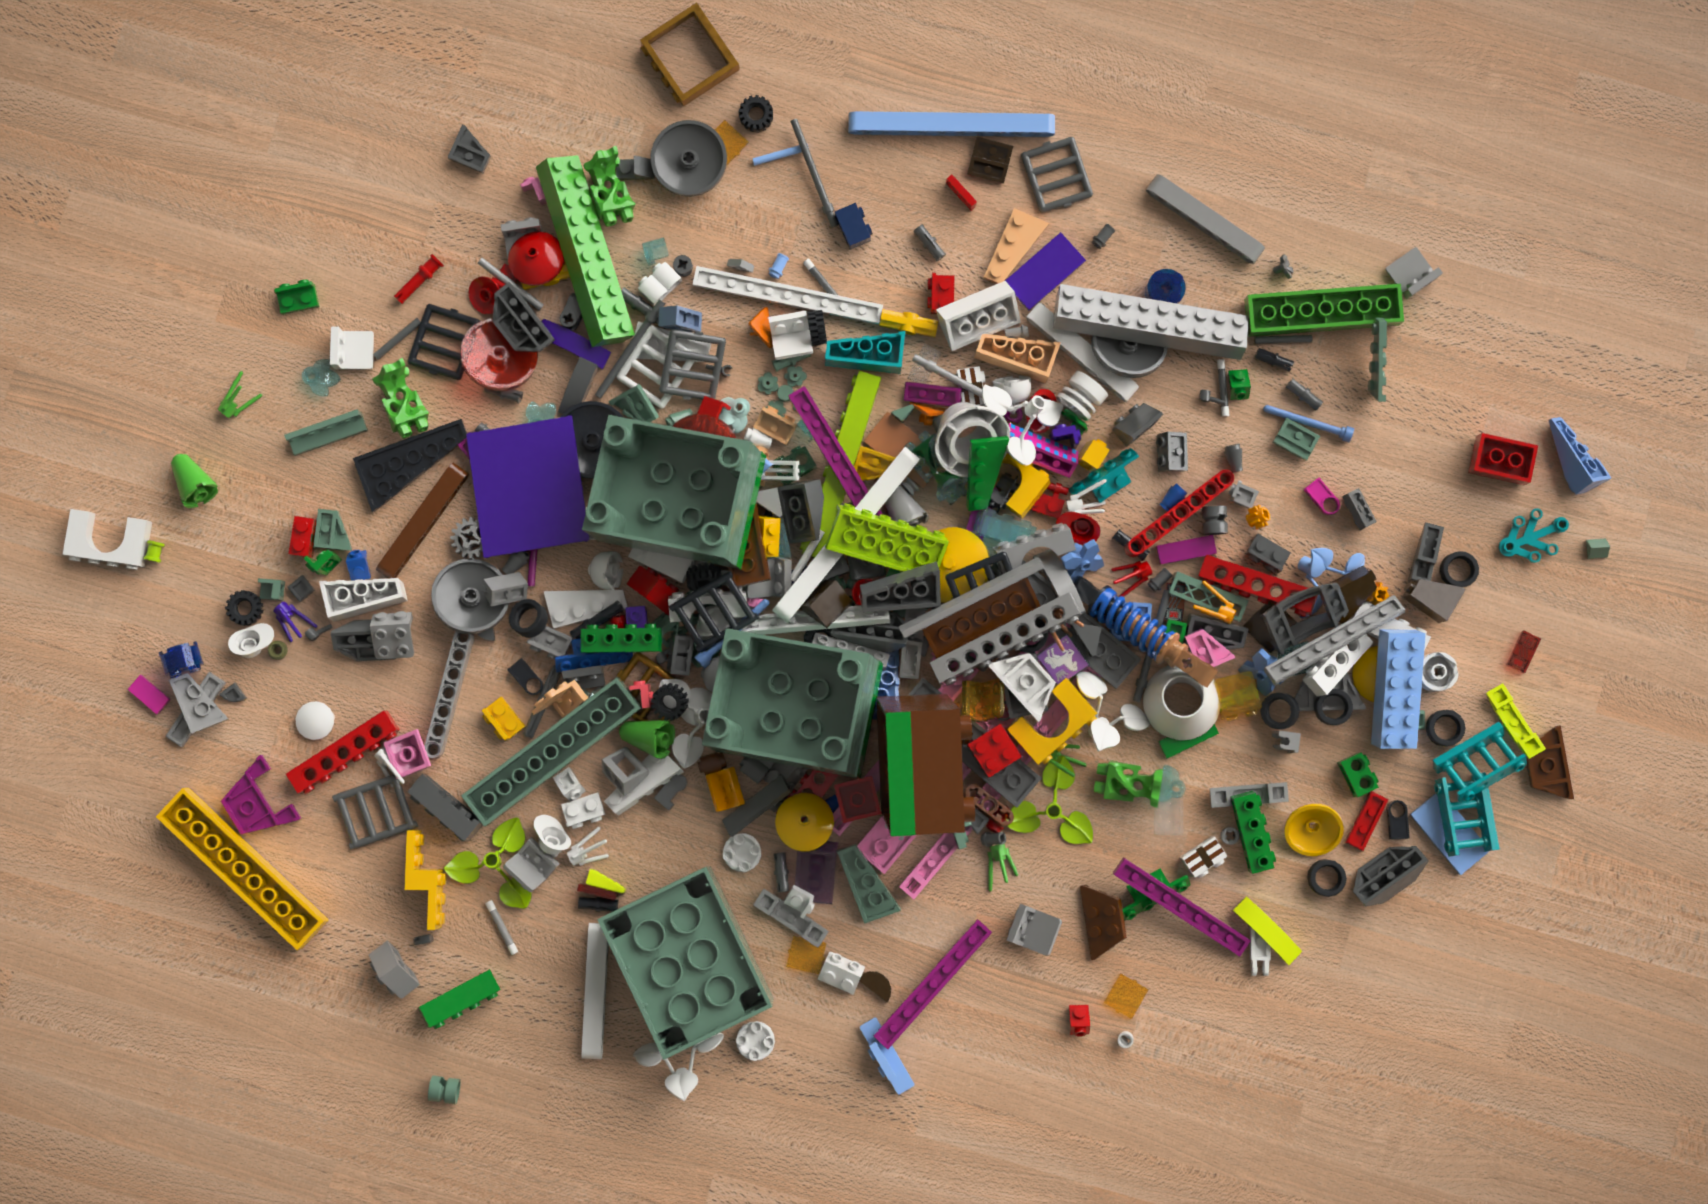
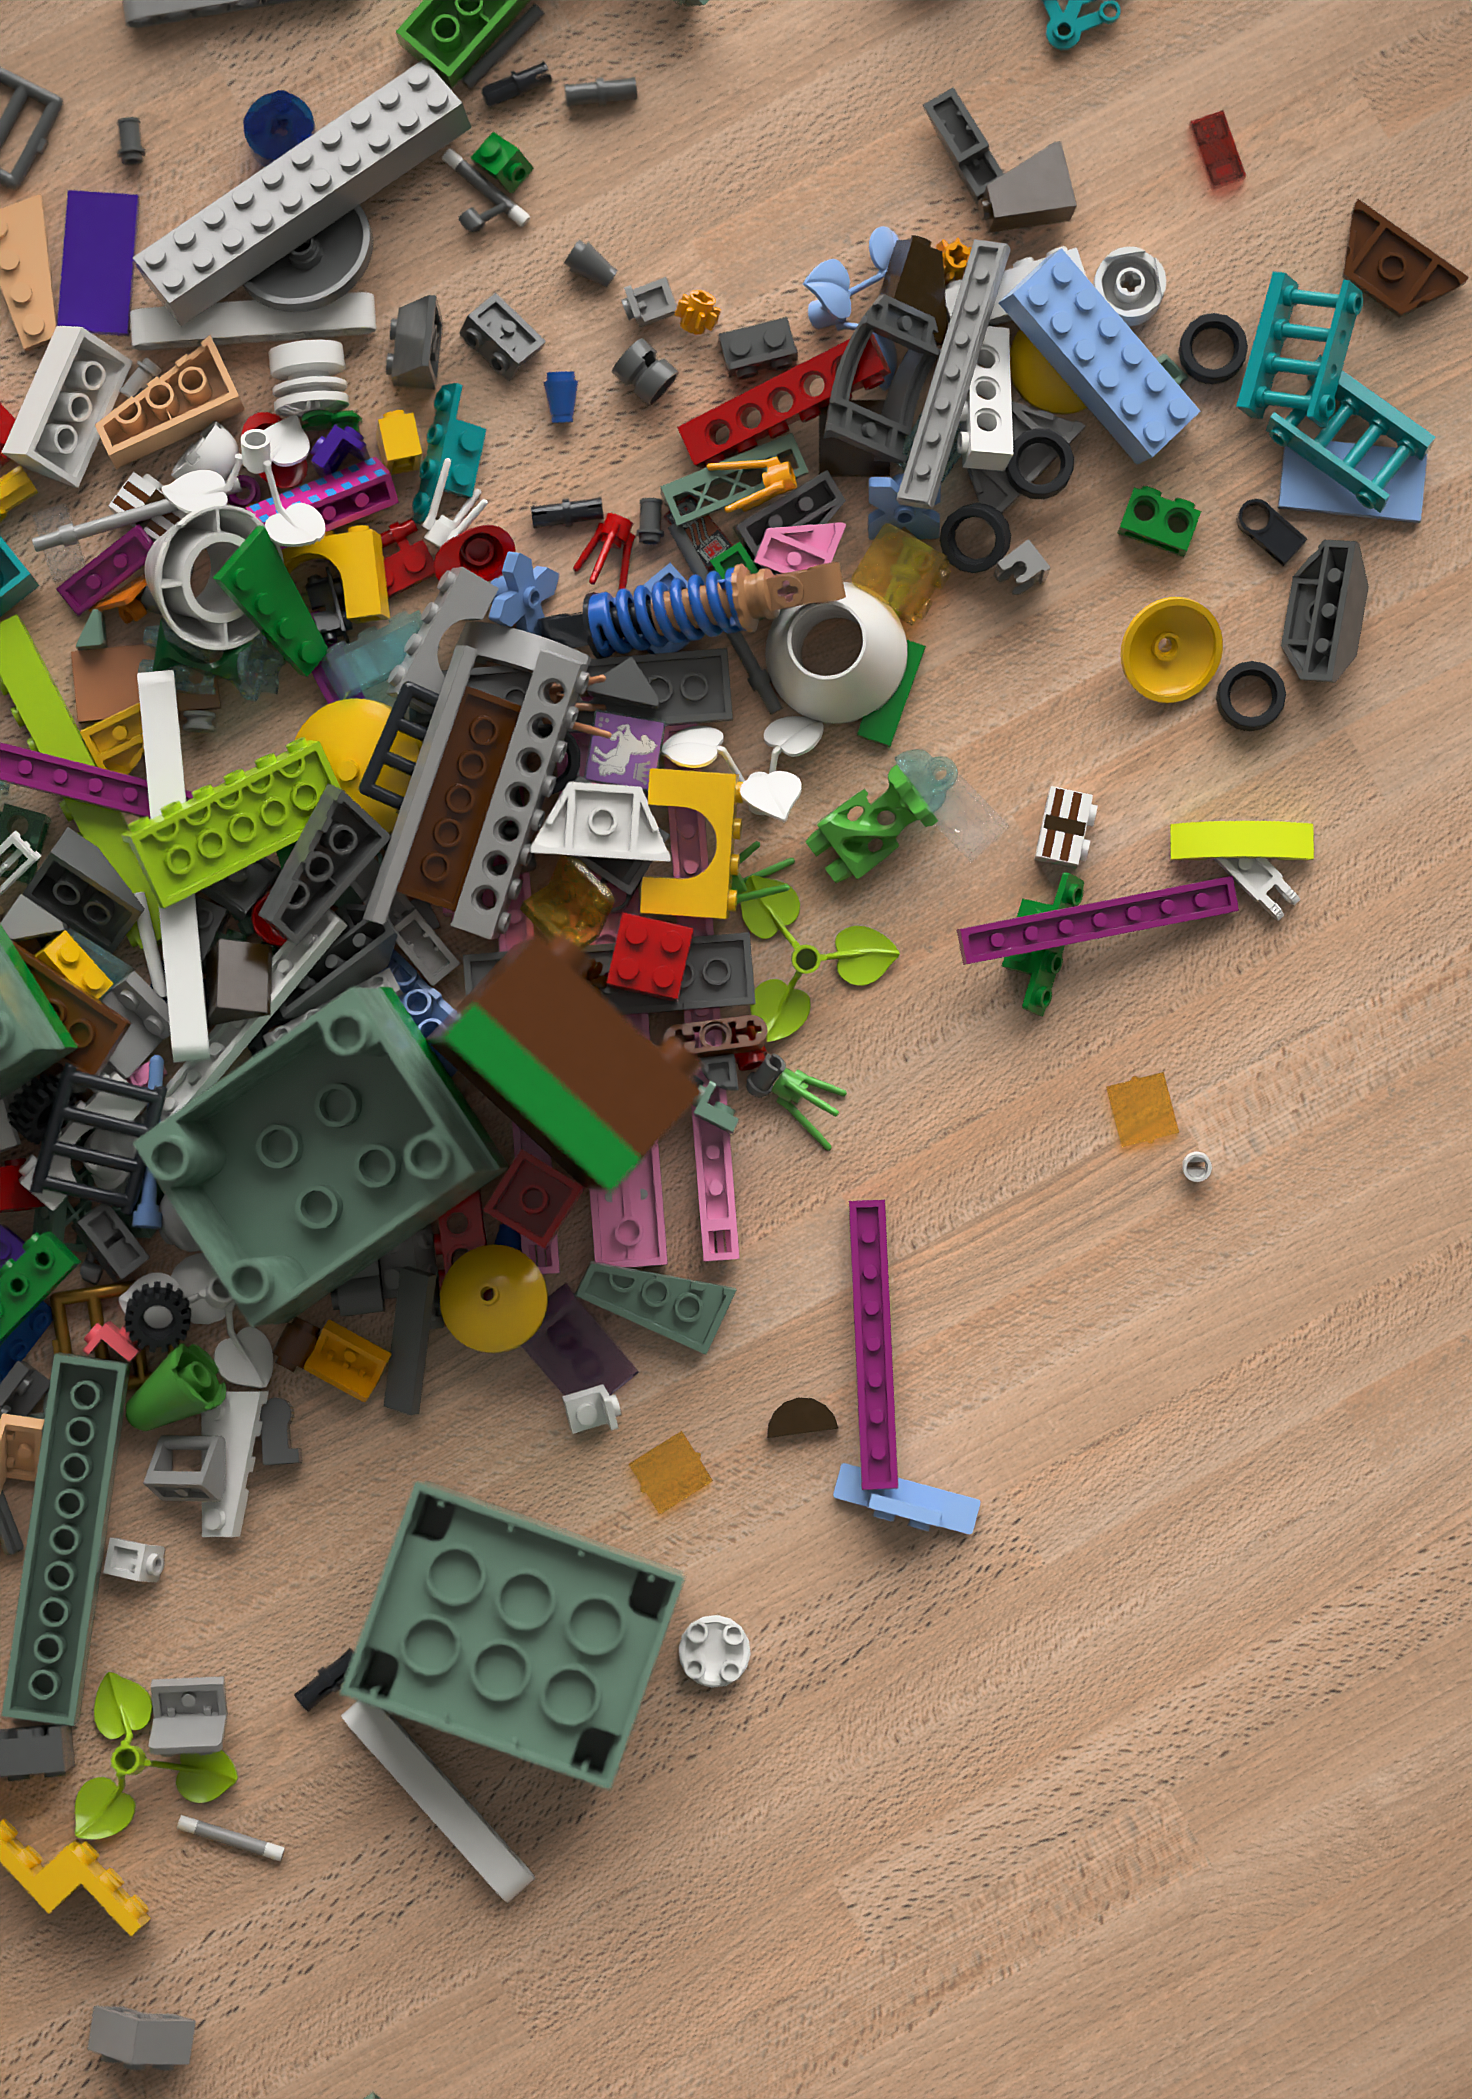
camera: 40 degrees left, 0 degrees up
(423, 939) = (141, 1957): dark grey tile -> none
(459, 998) = (266, 1987): green wedge -> none
(551, 835) = (176, 1649): white piece -> none
(578, 855) = (238, 1640): white plant -> none
(582, 887) = (310, 1663): clear red tile -> none
(583, 809) = (186, 1576): white bracket -> none
(601, 881) = (299, 1646): neon yellow slope -> none
(683, 1080) = (668, 1796): white plant -> none
(742, 852) = (452, 1422): white dish -> none
(781, 872) = (530, 1396): dark grey pin -> none
(791, 918) = (601, 1444): light grey slope -> none
(841, 972) = (739, 1449): white bracket -> none
(903, 507) = (214, 755): light grey cone -> none
(1034, 930) = (936, 1141): light grey bracket -> none
(1079, 1020) = (1112, 1201): red bracket -> none
(1103, 920) = (1014, 1040): reddish brown wing -> none
(1186, 549) = (646, 447): magenta tile -> none
(1187, 509) = (589, 391): red beam -> none
(1230, 829) = (1080, 773): light grey bush -> none
(1252, 832) = (1095, 731): green brick -> none
(1268, 793) = (1043, 688): light grey slope -> none
(1296, 439) = (648, 161): sand green plate -> none
(1318, 493) = (747, 202): dark pink piece -> none
(1345, 432) = (703, 91): medium blue piece -> none
(1359, 509) = (819, 171): dark grey bracket -> none
(1366, 821) = (1230, 571): red tile -> none
(1474, 569) = (1020, 98): black tyre -> none
(1514, 722) = (1293, 253): neon yellow slope -> none

